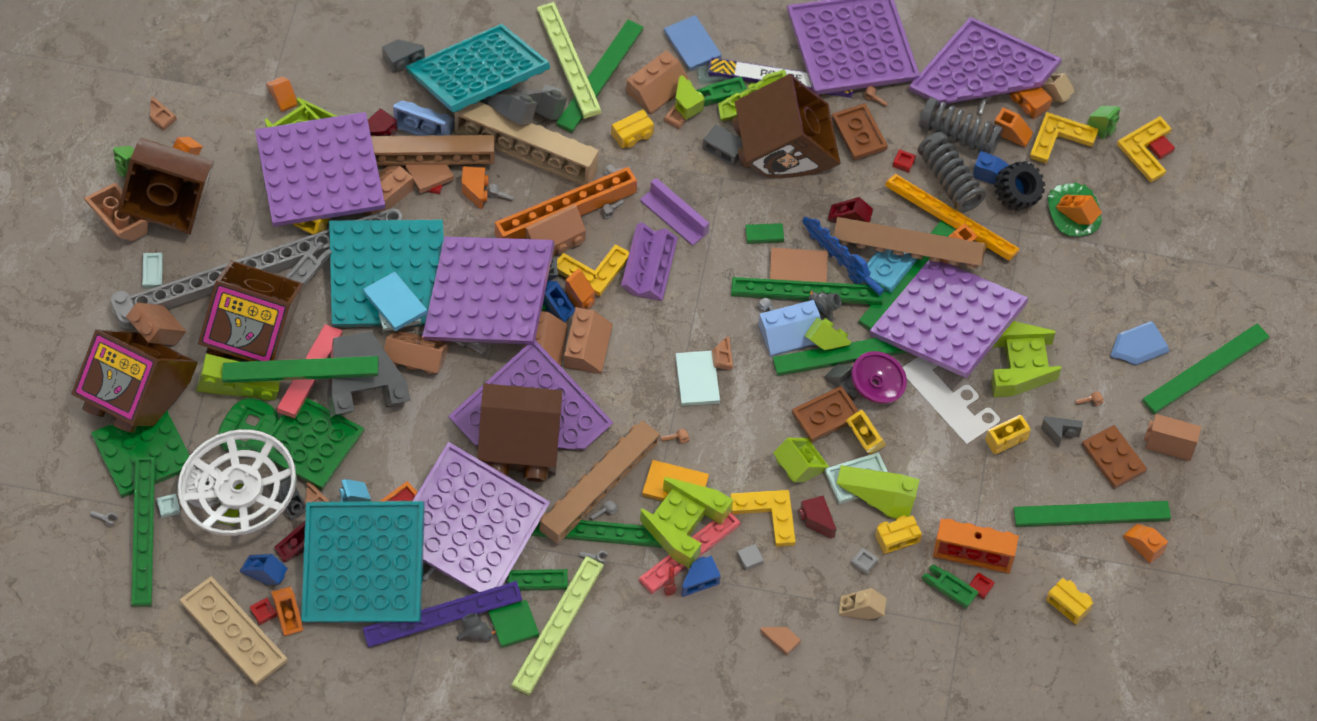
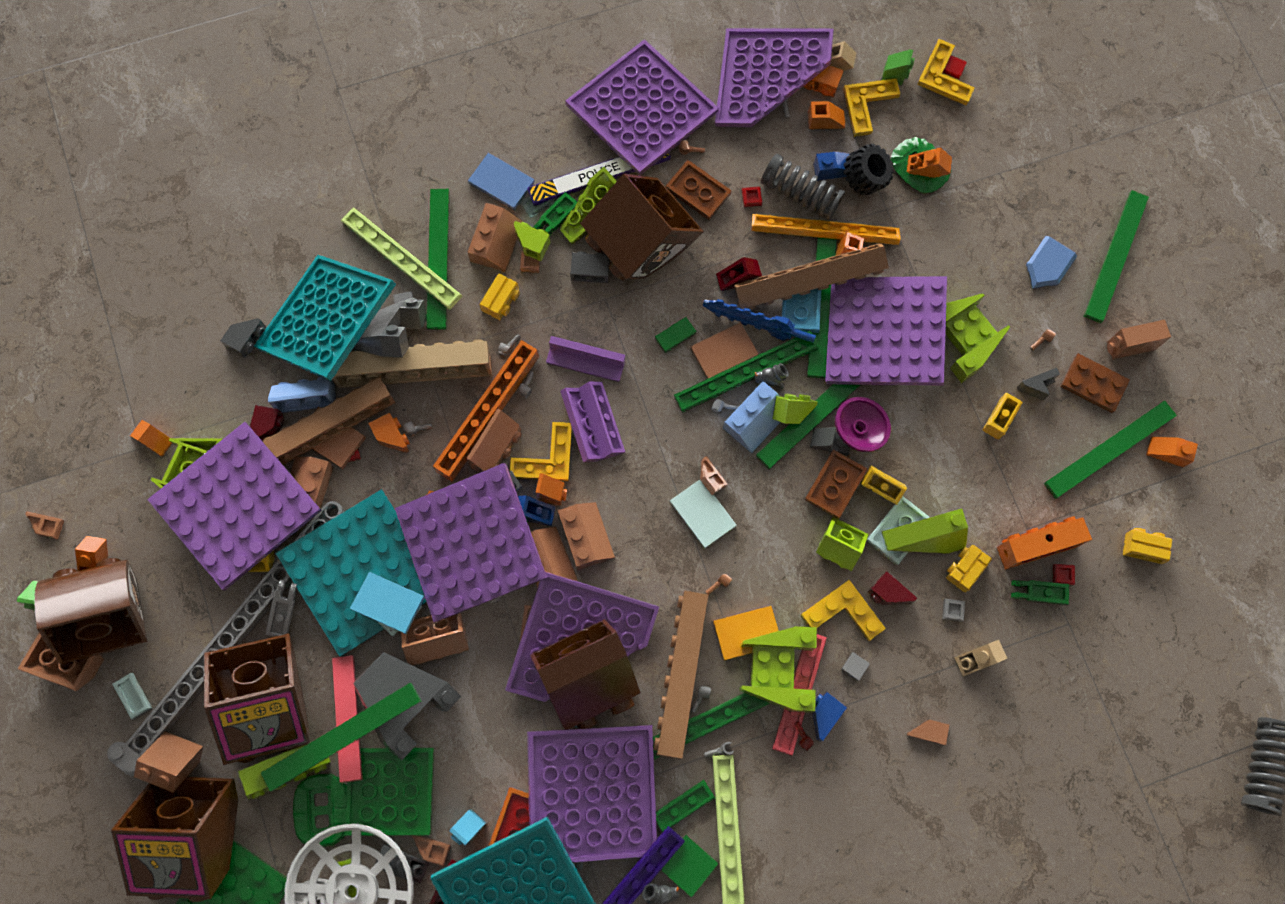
camera: 30 degrees left, 15 degrees up
(926, 123) = (816, 134): dark grey piece -> none
(946, 403) = (928, 410): white piece -> none

